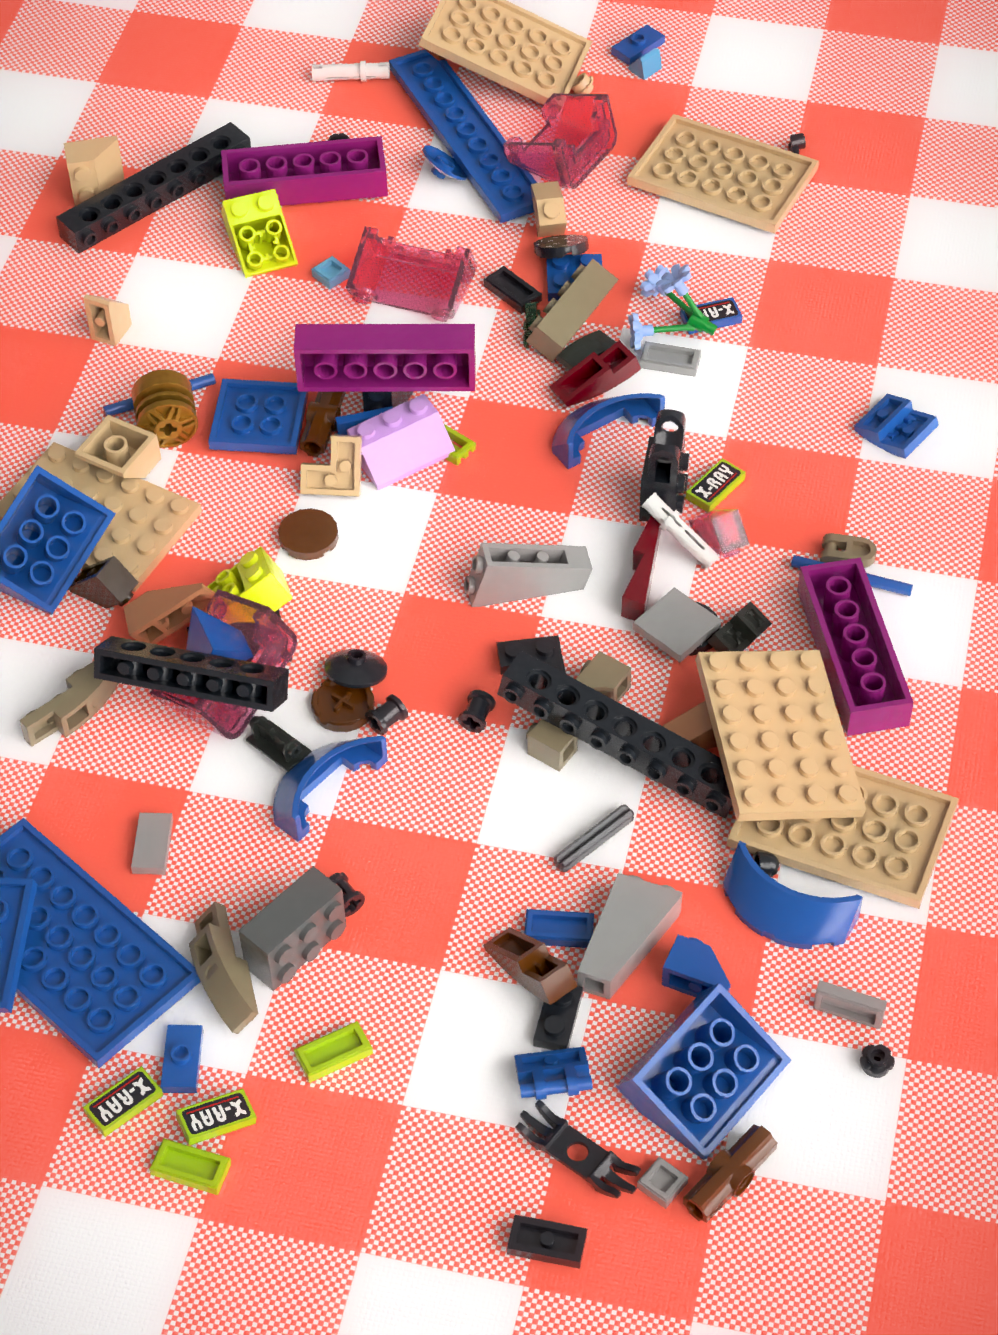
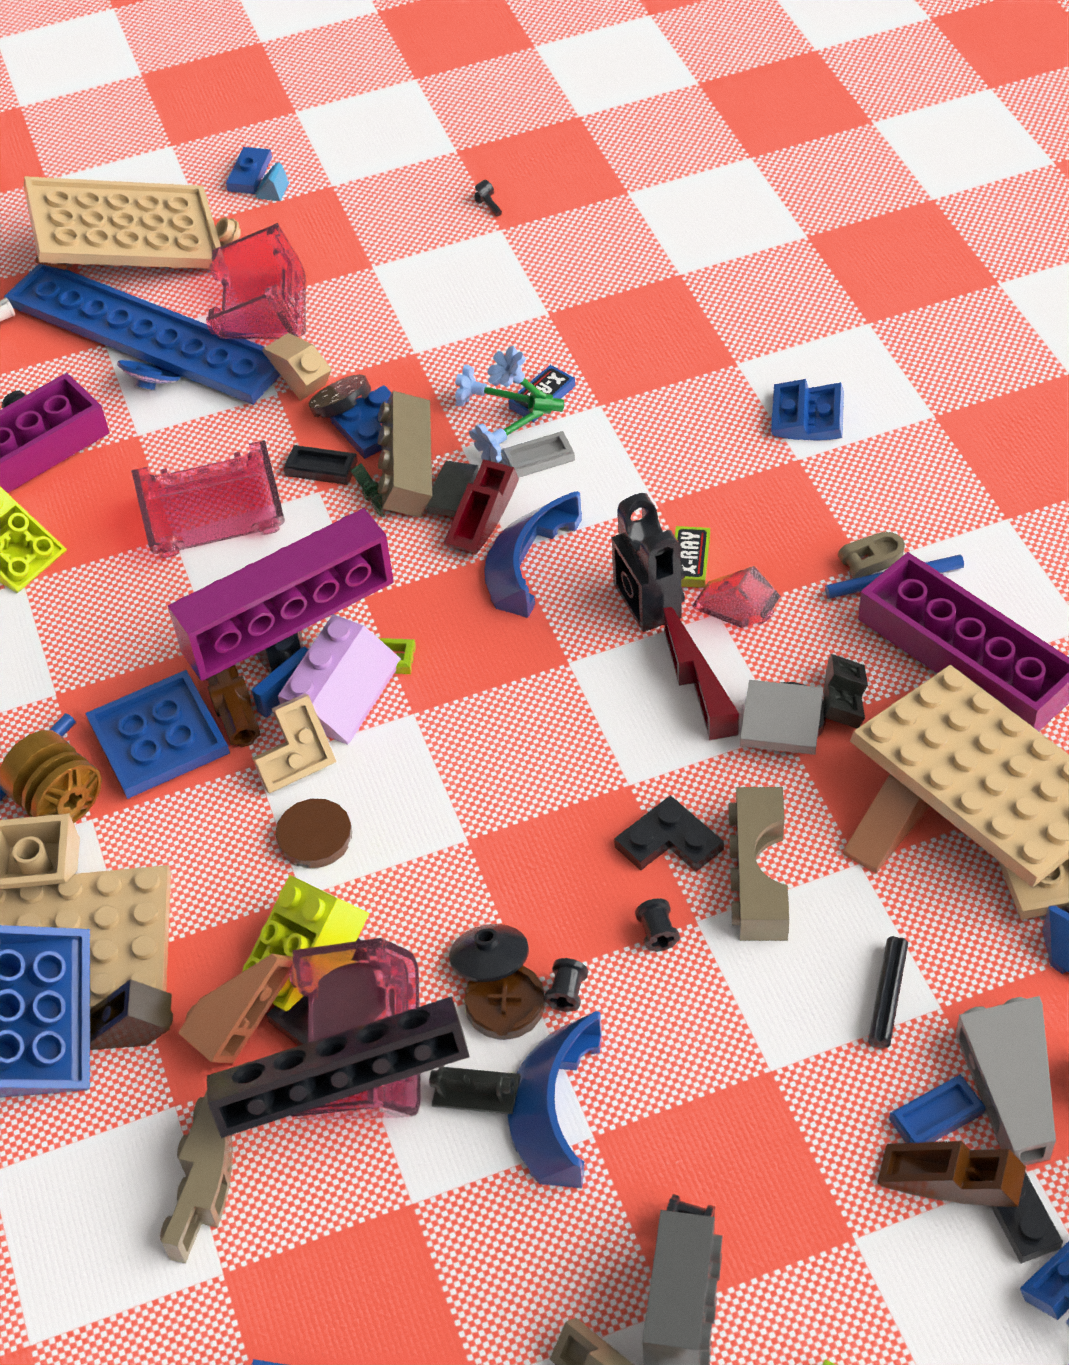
camera: 30 degrees left, 0 degrees up
(152, 843) = (424, 1294): light grey tile -> none
(216, 637) = (325, 1009): blue slope -> none
(331, 272) = (111, 541): medium azure tile -> none
(525, 571) = (584, 747): light grey slope -> none
(617, 731) = (833, 862): black brick -> none
(680, 530) = (692, 614): white pin -> none
(723, 173) = (438, 252): tan plate -> none

